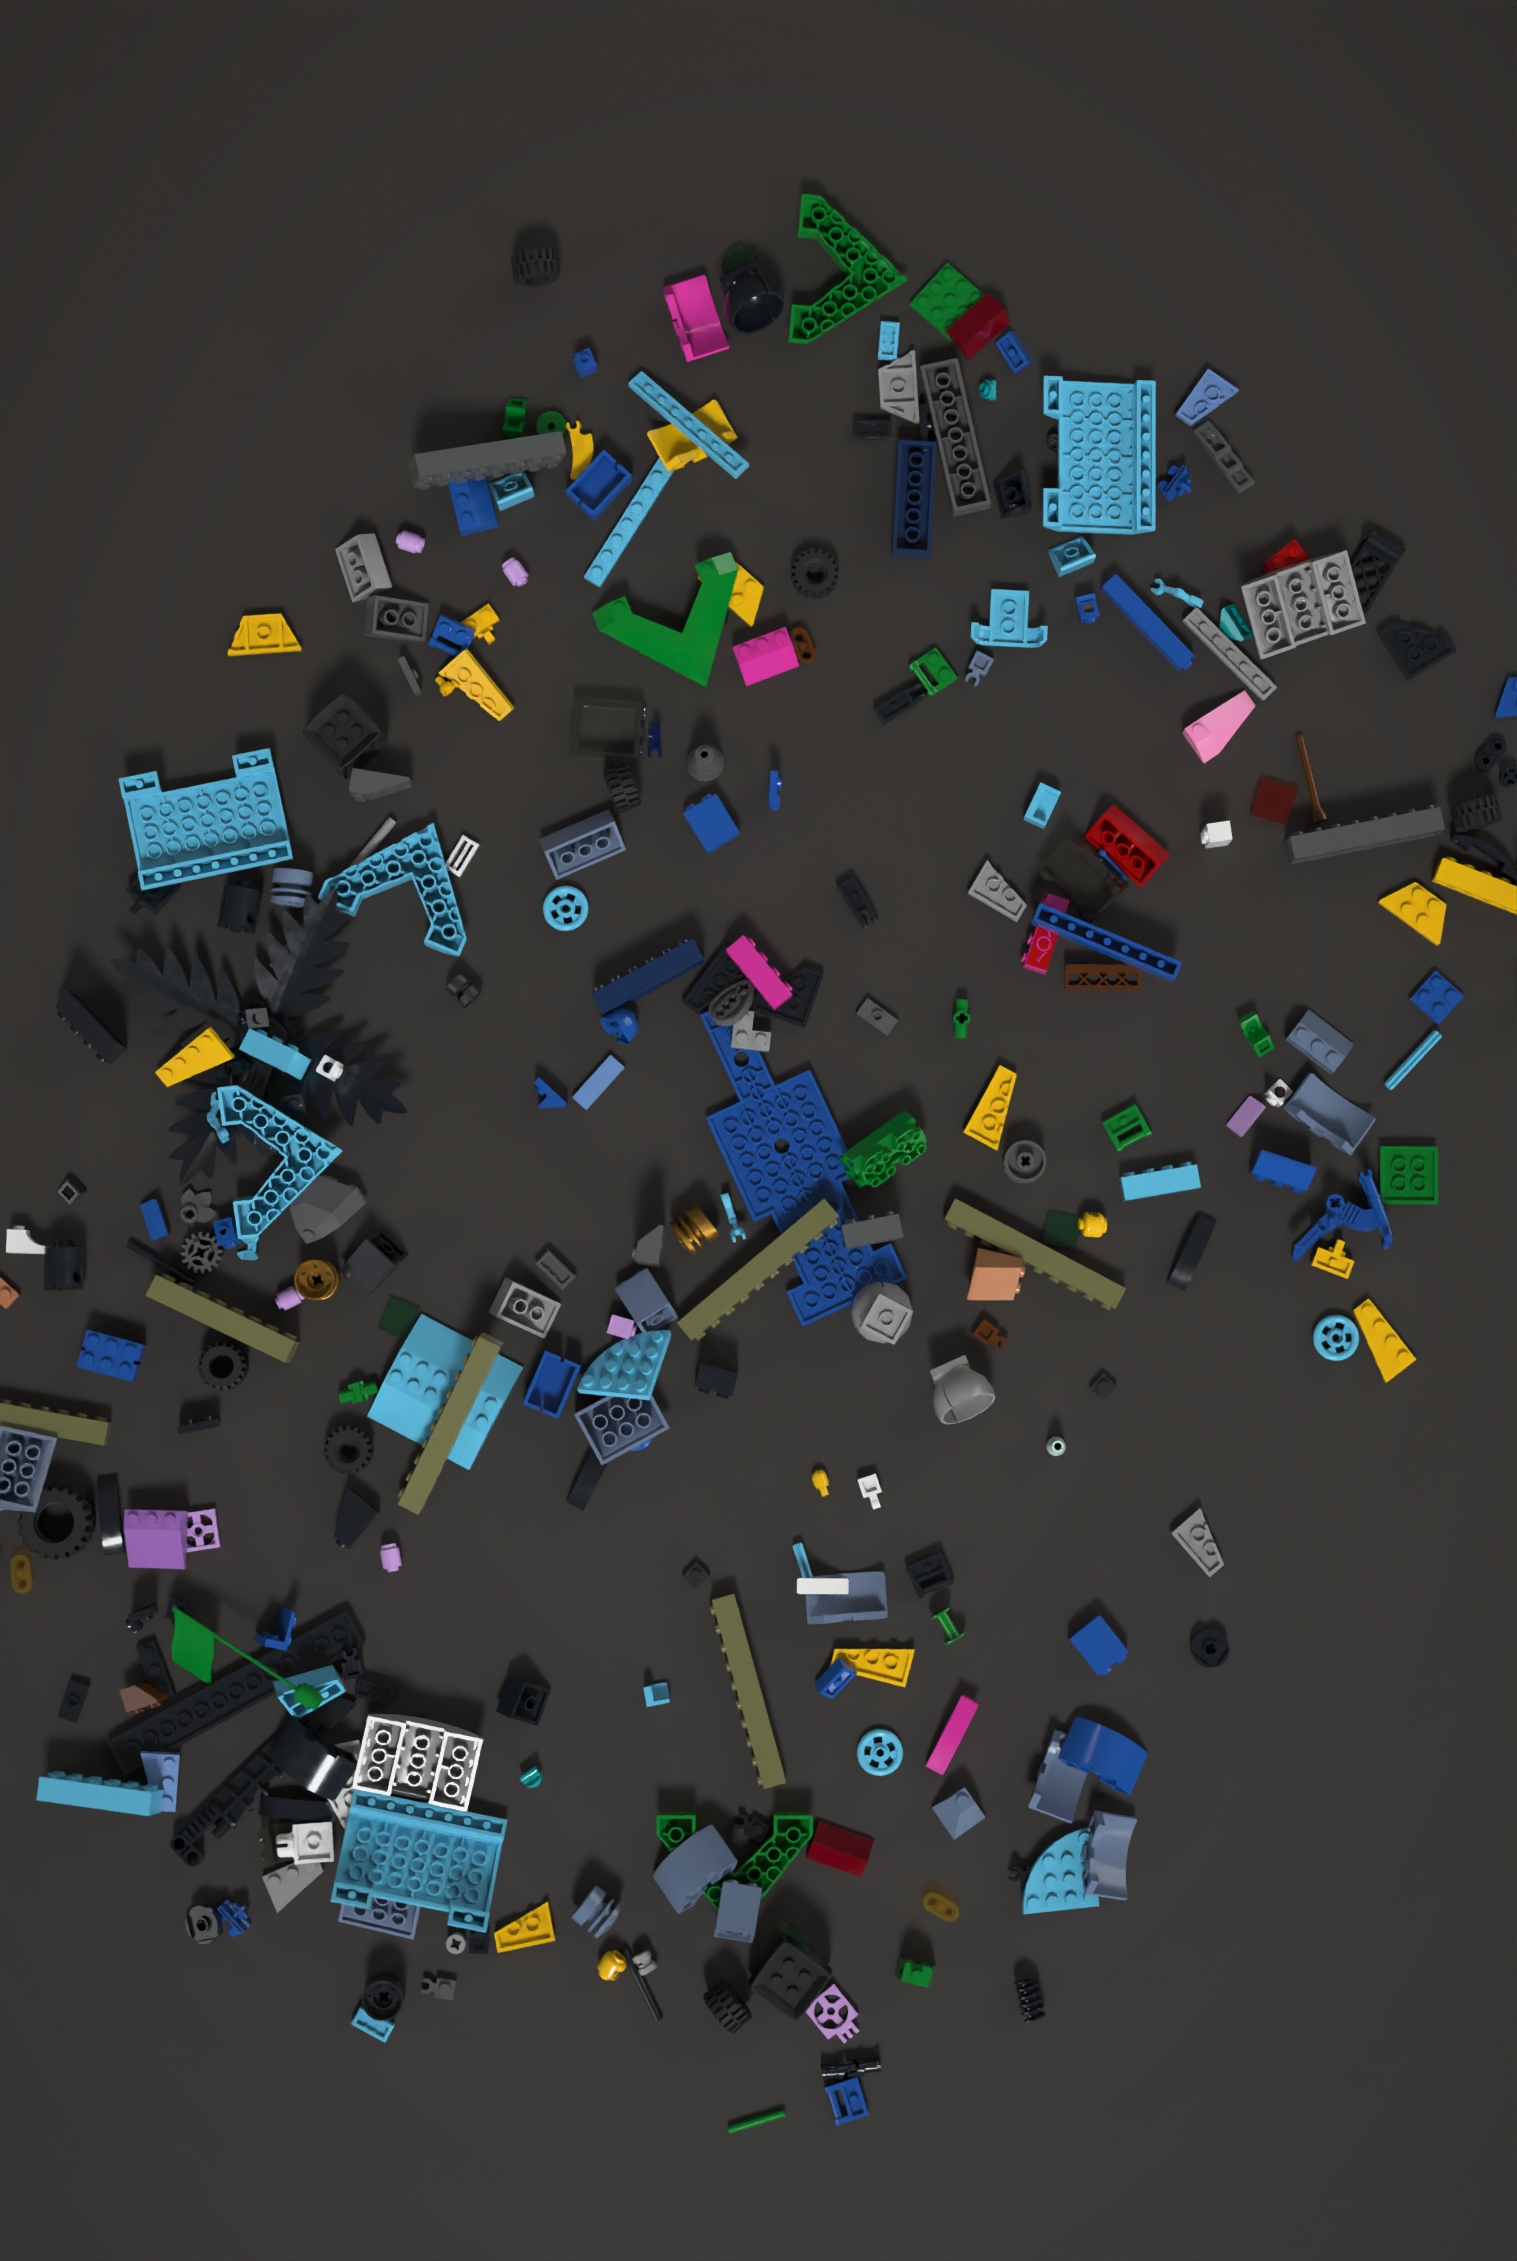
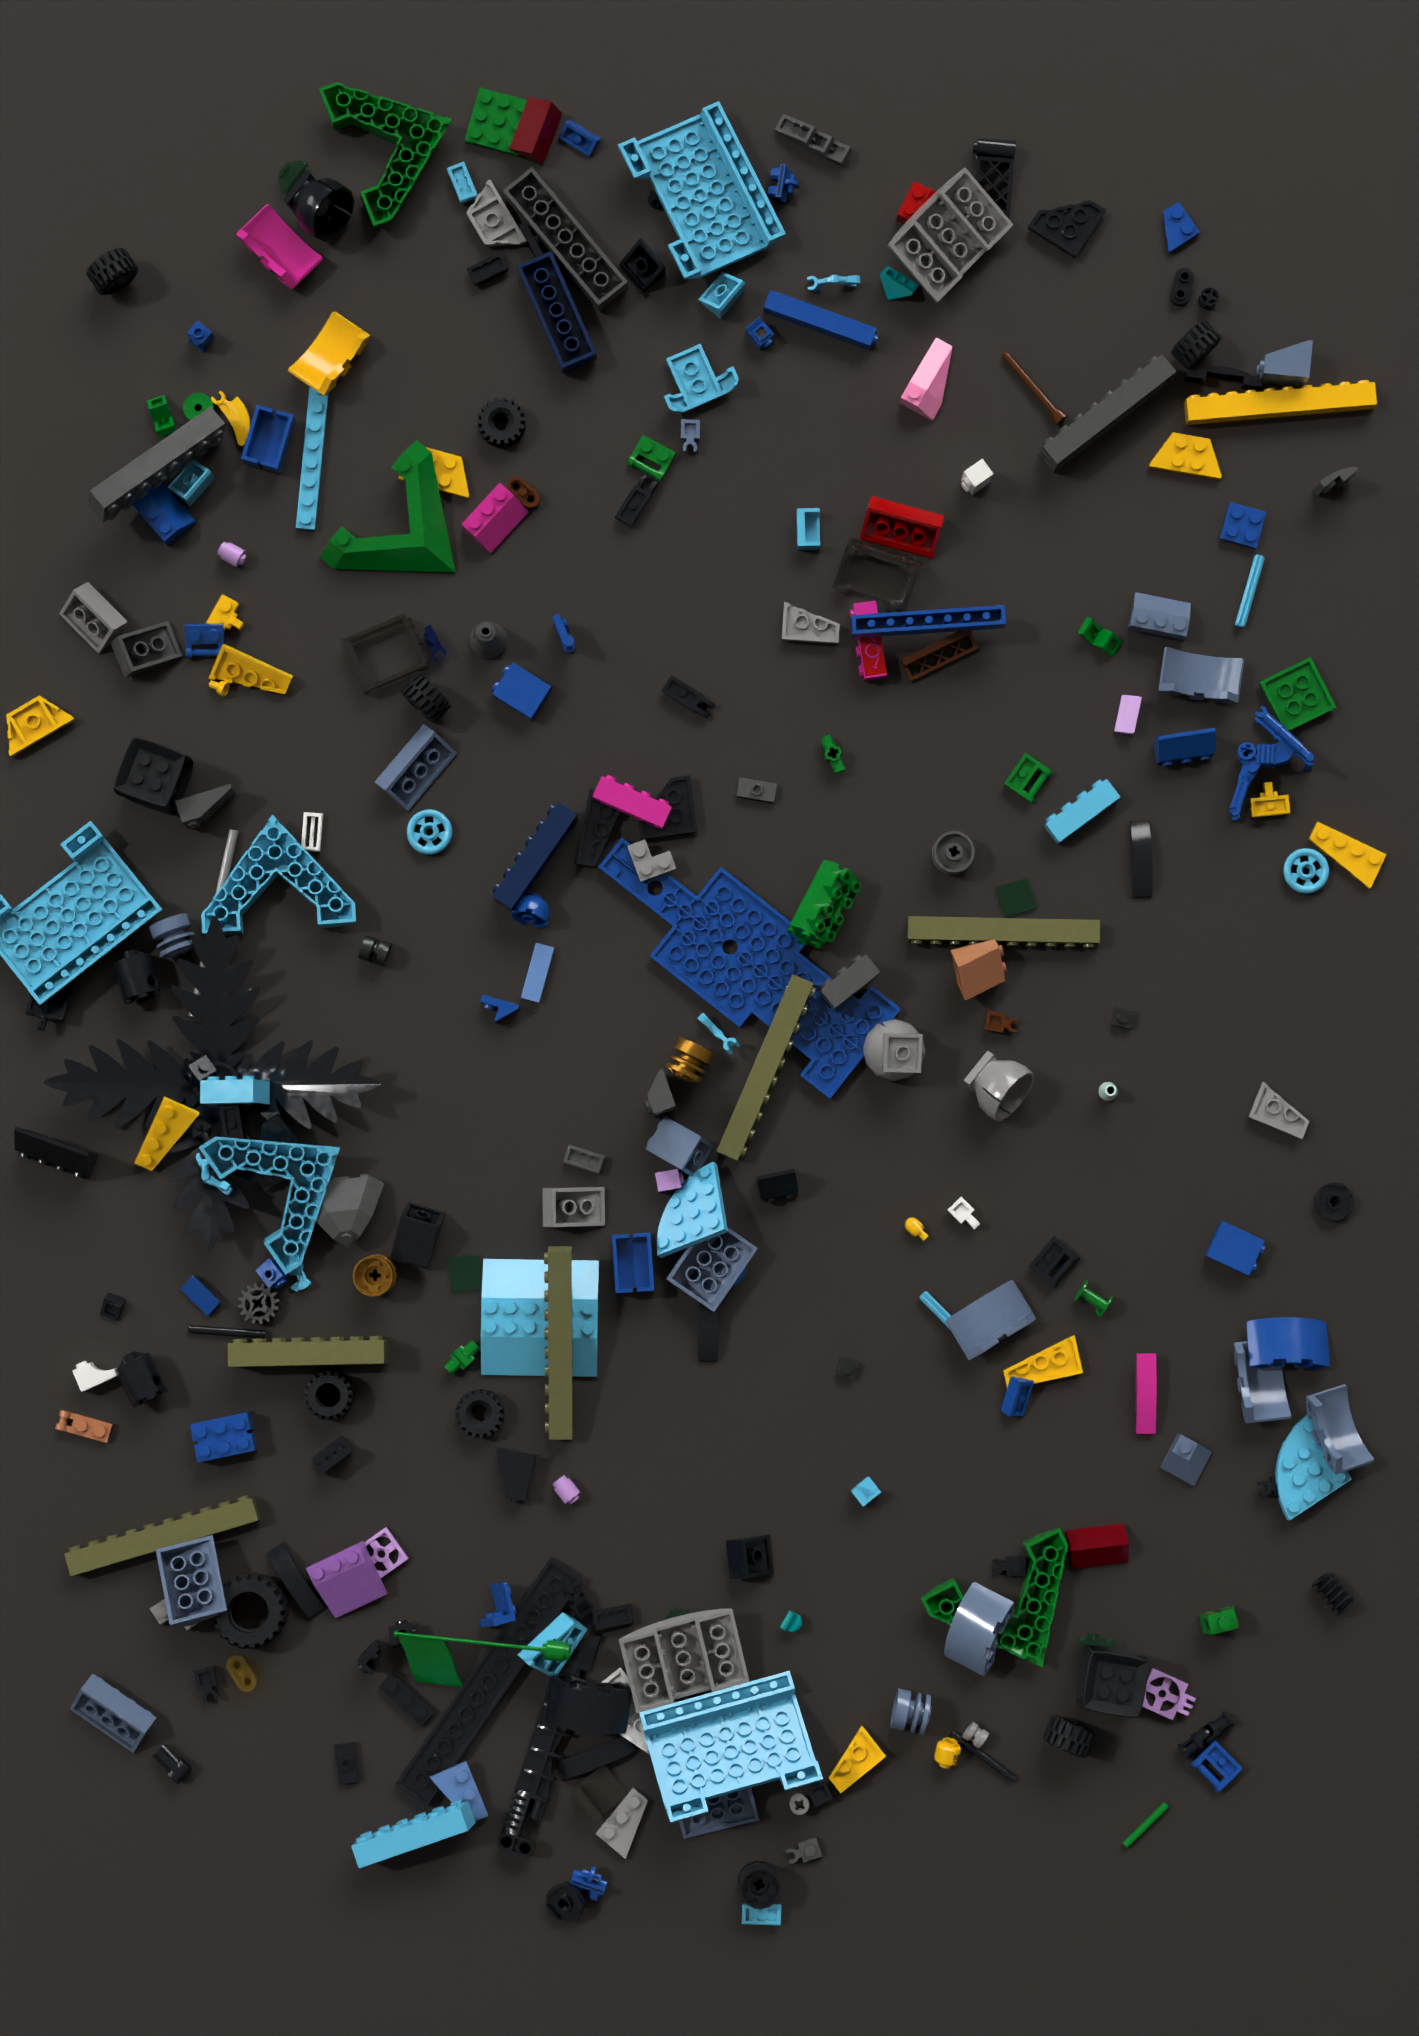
camera: 30 degrees left, 0 degrees up
(141, 1695) = (404, 1727): reddish brown slope -> none
(199, 1205) = (235, 1262): dark grey plate -> none
(288, 1298) = (357, 1304): lavender brick -> none
(308, 1843) = (621, 1782): white plate -> none
(335, 1071) = (298, 1080): white bracket -> none
(410, 542) = (123, 573): lavender brick -> none
(410, 675) = (185, 693): dark grey plate -> none
(688, 425) = (321, 345): medium azure plate -> none
(738, 1911) = (1036, 1646): sand blue slope -> none
(741, 996) = (626, 828): dark grey piece -> none
(748, 1691) = (946, 1446): olive brick -> none
(822, 1586) = (964, 1319): white sticker -> none
(887, 1737) = (1080, 1455): medium azure plate -> none
(940, 1906) = (1212, 1551): clear yellow plate -> none
(988, 389) = (573, 182): teal plate -> none
(990, 1114) = (901, 825): yellow wing -> none
(1092, 1224) = (1041, 878): yellow head -> none
(1102, 852) = (882, 544): blue hinge -> none
(1205, 397) = (770, 94): medium blue wing -> none
(1229, 654) = (906, 312): light grey plate -> none
(1273, 1099) = (1145, 687): white bracket -> none
(1274, 802) = (1012, 423): clear red plate -> none

